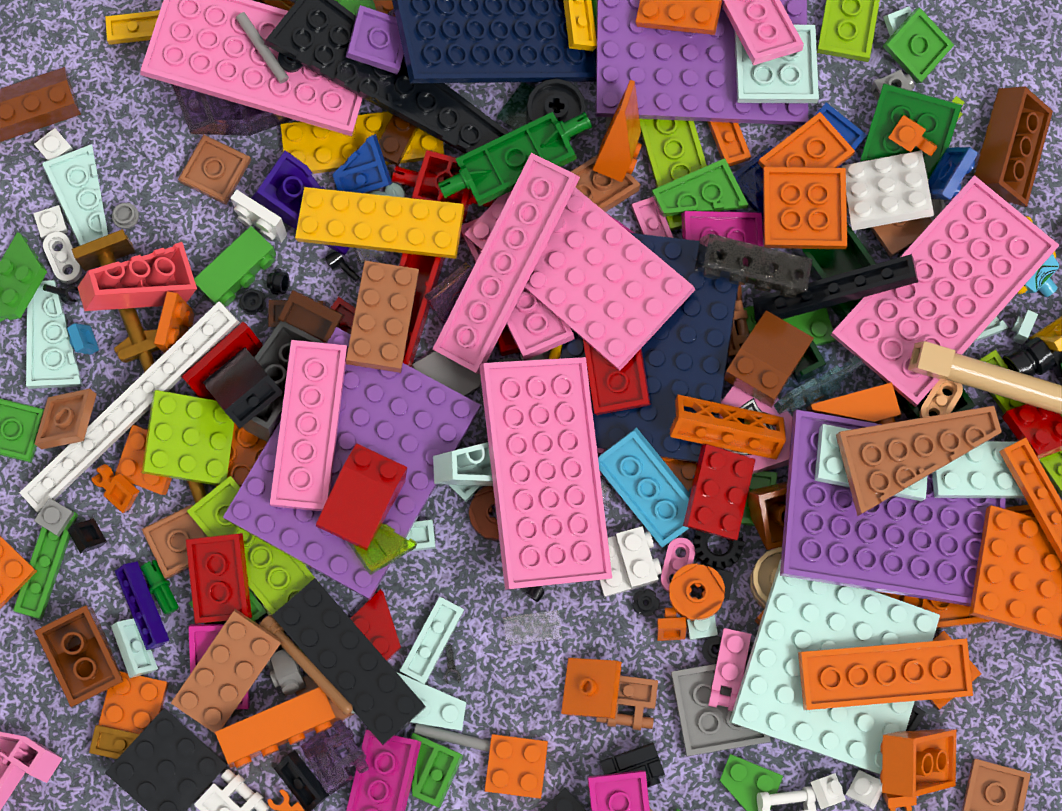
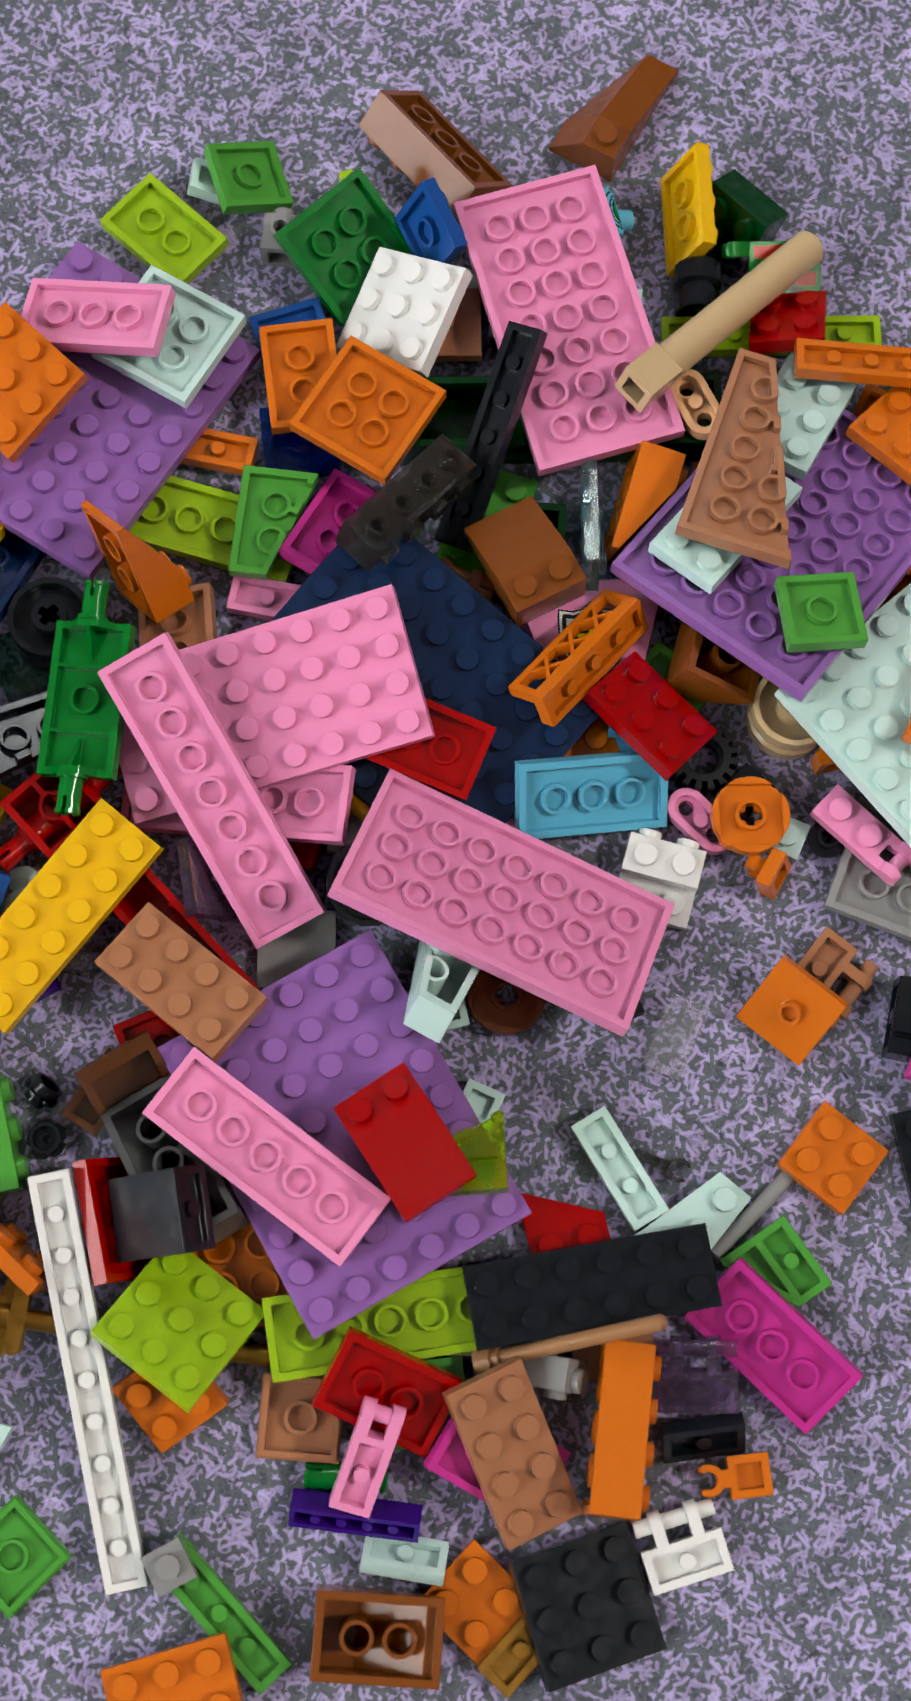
camera: 60 degrees left, 0 degrees up
(65, 419) = (48, 1474): nougat plate -> none
(87, 535) = (219, 1535): black plate -> none
(118, 488) = (183, 1457): orange plate -> none
(174, 588) = (366, 1458): none -> bright pink plate
(335, 259) = (61, 1001): black hand -> none
(645, 610) = (717, 894): black plate -> none
(844, 553) = (820, 612): none -> bright green plate
(909, 134) = (353, 246): orange plate -> none
(1023, 326) = (653, 271): light aqua plate -> none

